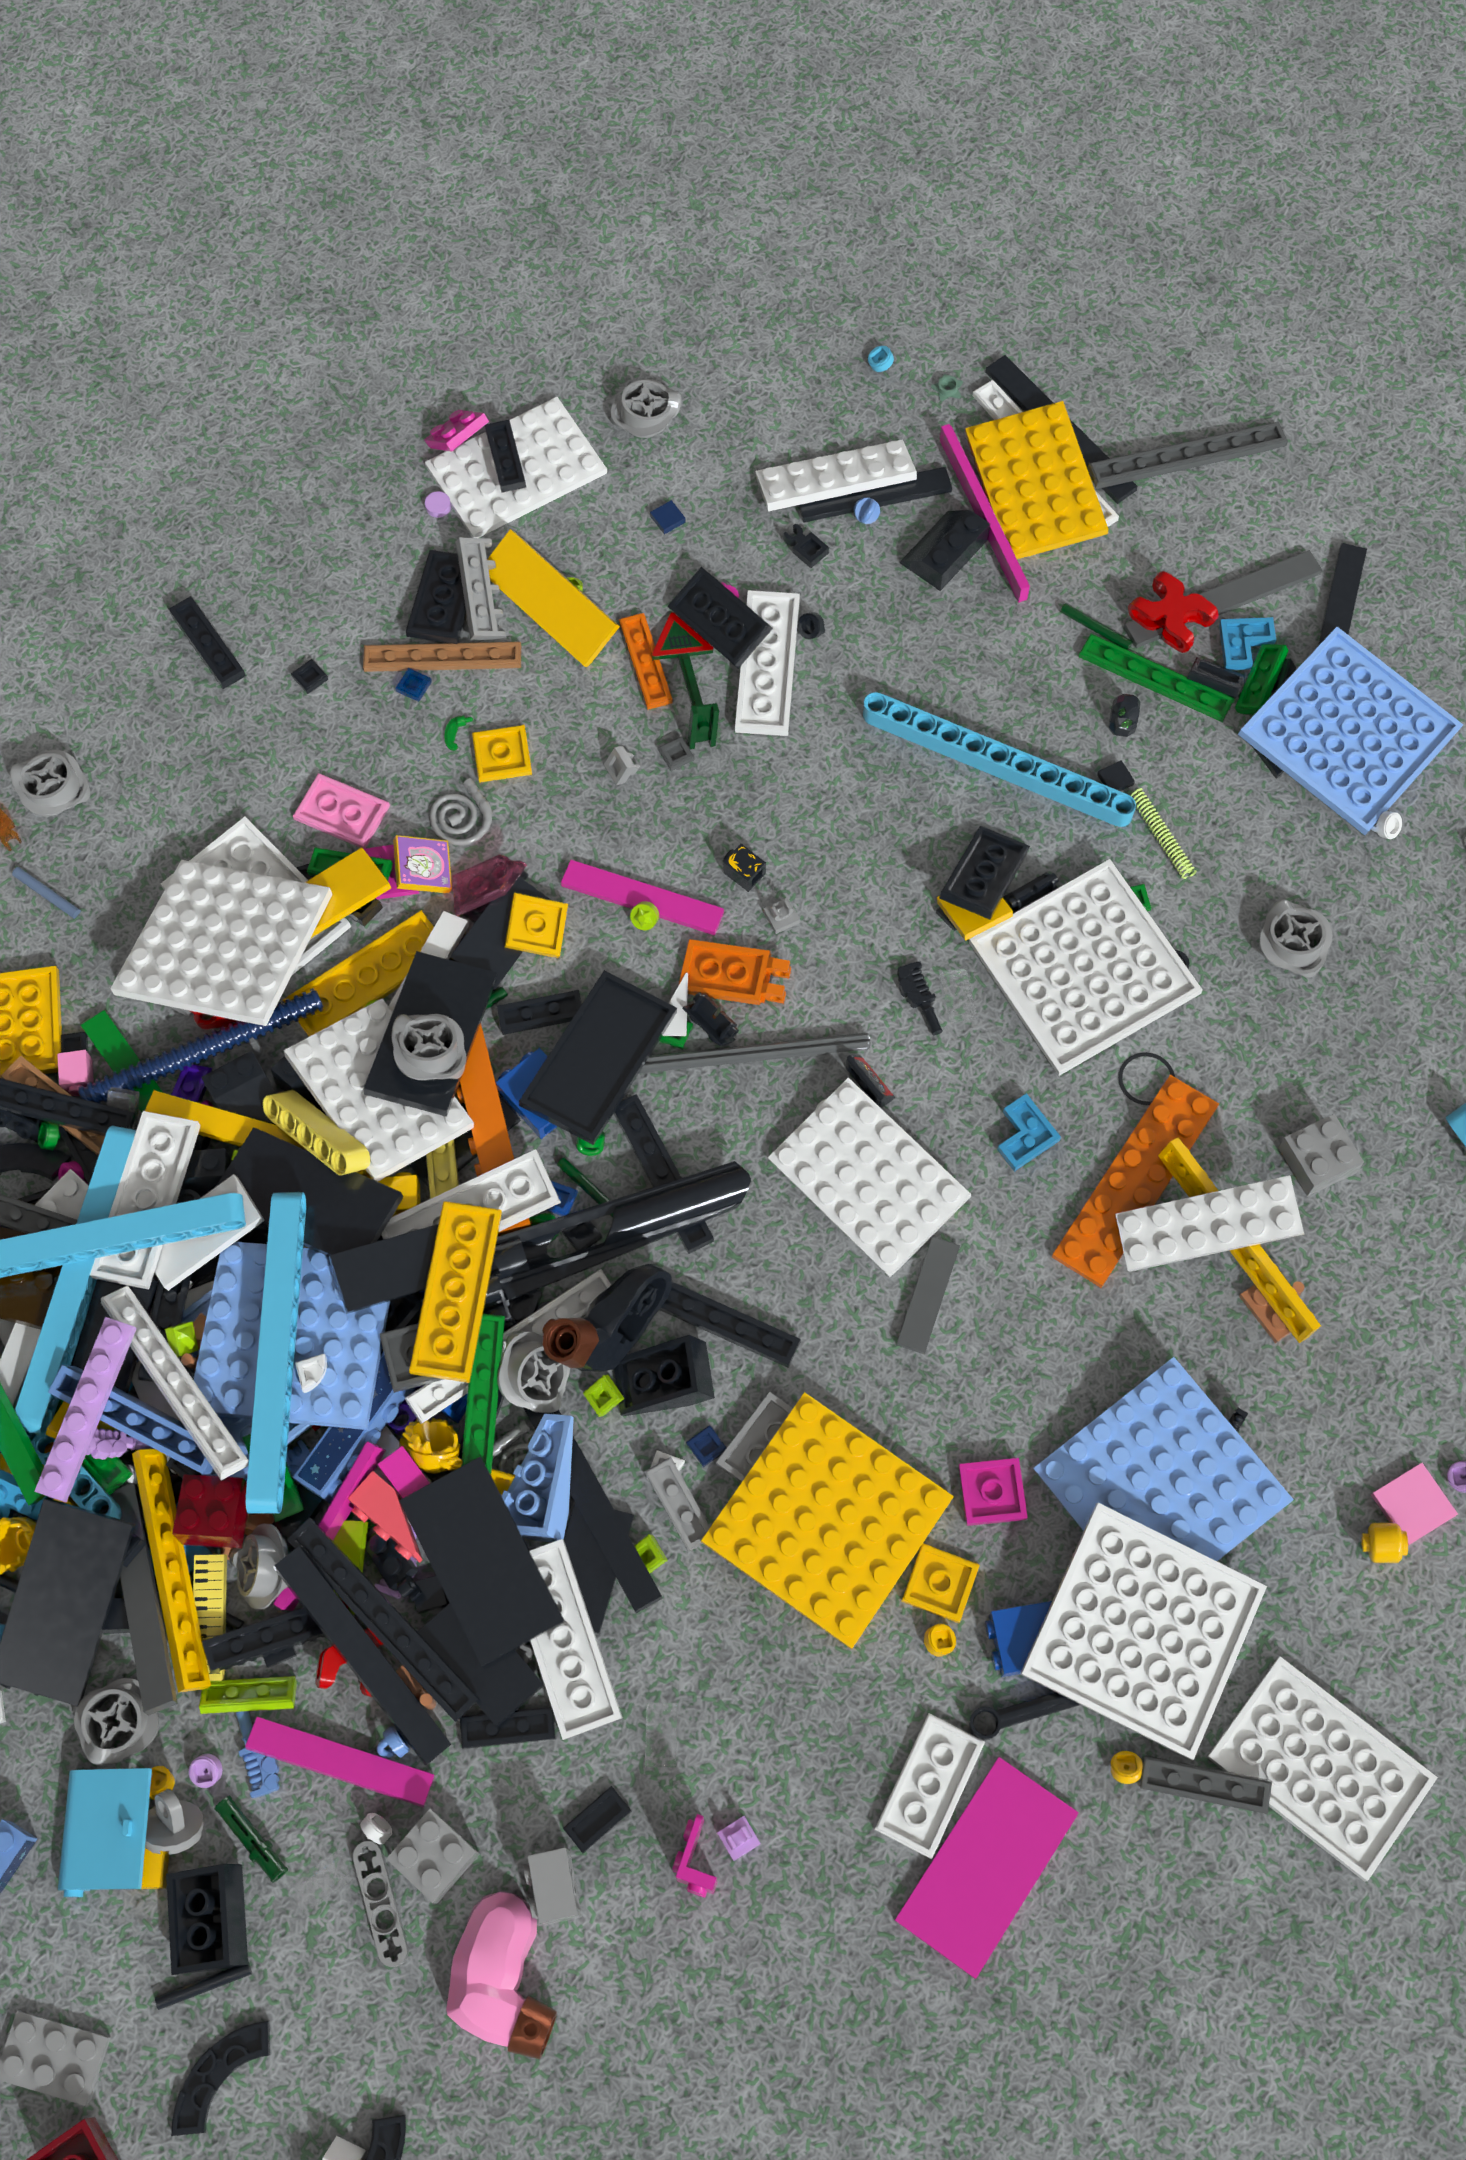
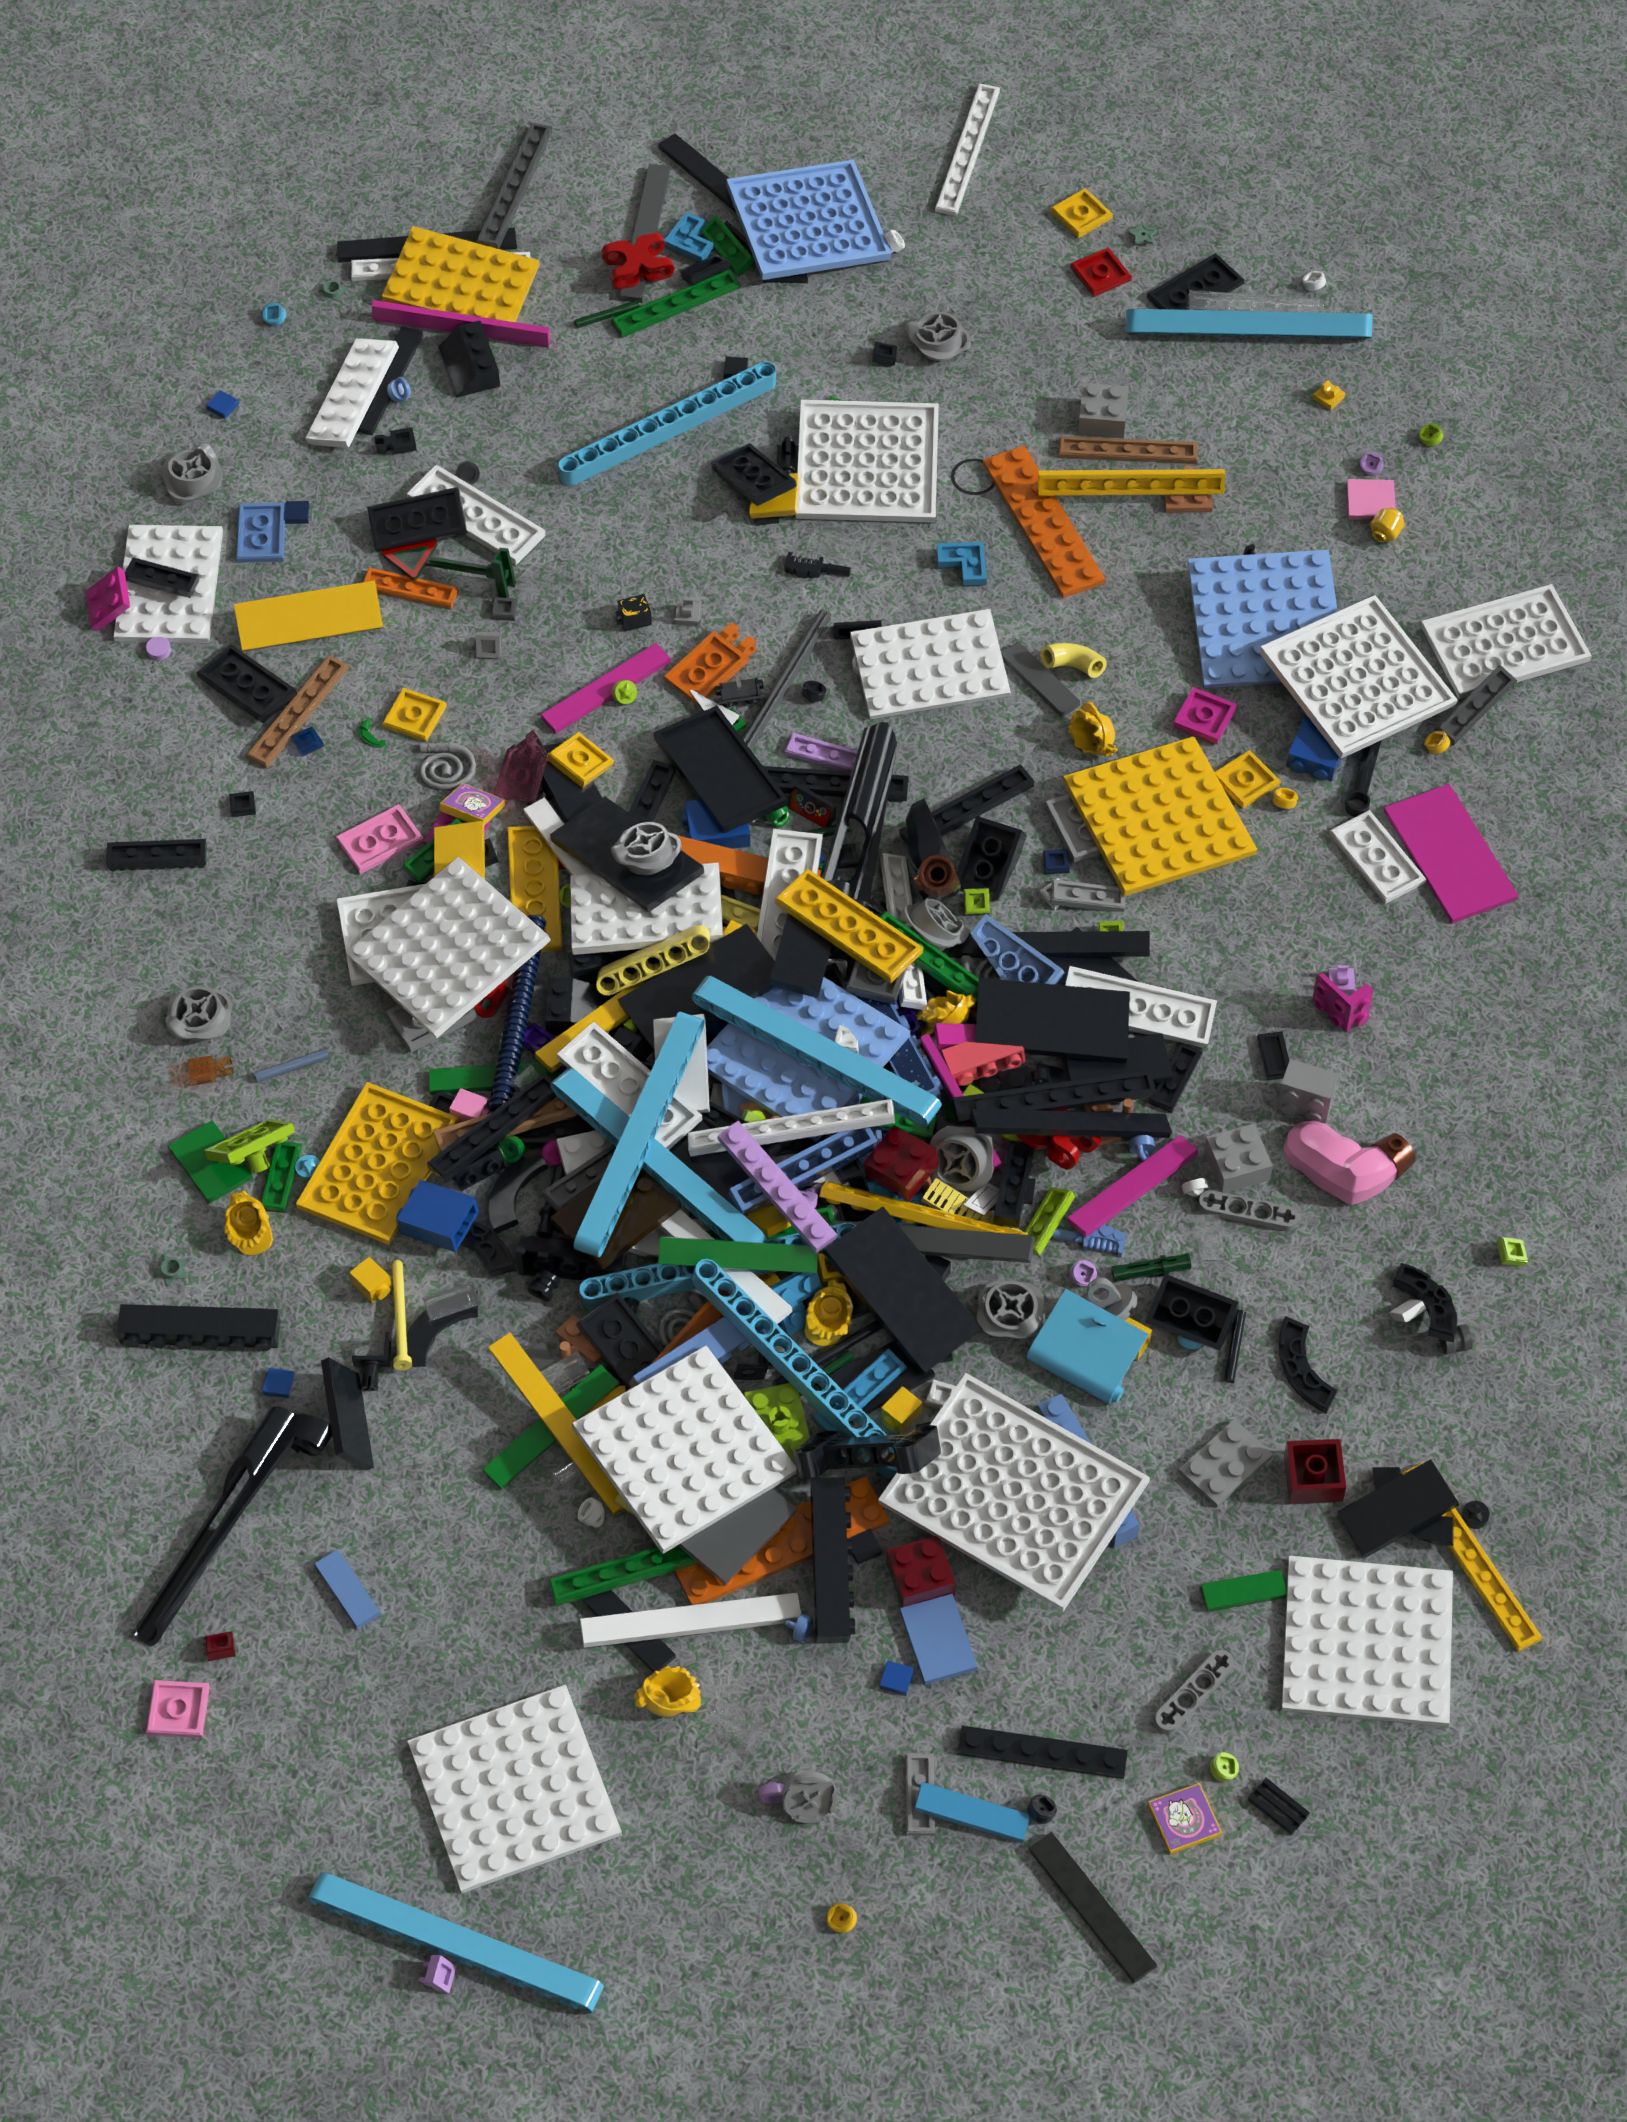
camera: 60 degrees left, 10 degrees down
(232, 1616) = (983, 1199): none -> white sticker
(478, 589) = (264, 653): light grey hinge -> none
(618, 1168) = (812, 806): none -> slope
(623, 503) = (261, 532): none -> medium blue tile
(694, 1135) = (821, 752): none -> lavender tile
(748, 384) = (222, 404): none -> blue tile
(763, 1086) = (813, 691): none -> black tile
(888, 1388) = (1090, 727): none -> yellow hair
(977, 1312) = (1073, 656): none -> light yellow cylinder
(1124, 715) = (693, 334): black rock -> none
(1164, 831) = (816, 366): yellowish green piece -> none
(1209, 1223) = (1112, 487): white plate -> none
(1237, 901) = (884, 353): none -> black tile
(1315, 1241) = (1128, 450): none -> medium nougat tile

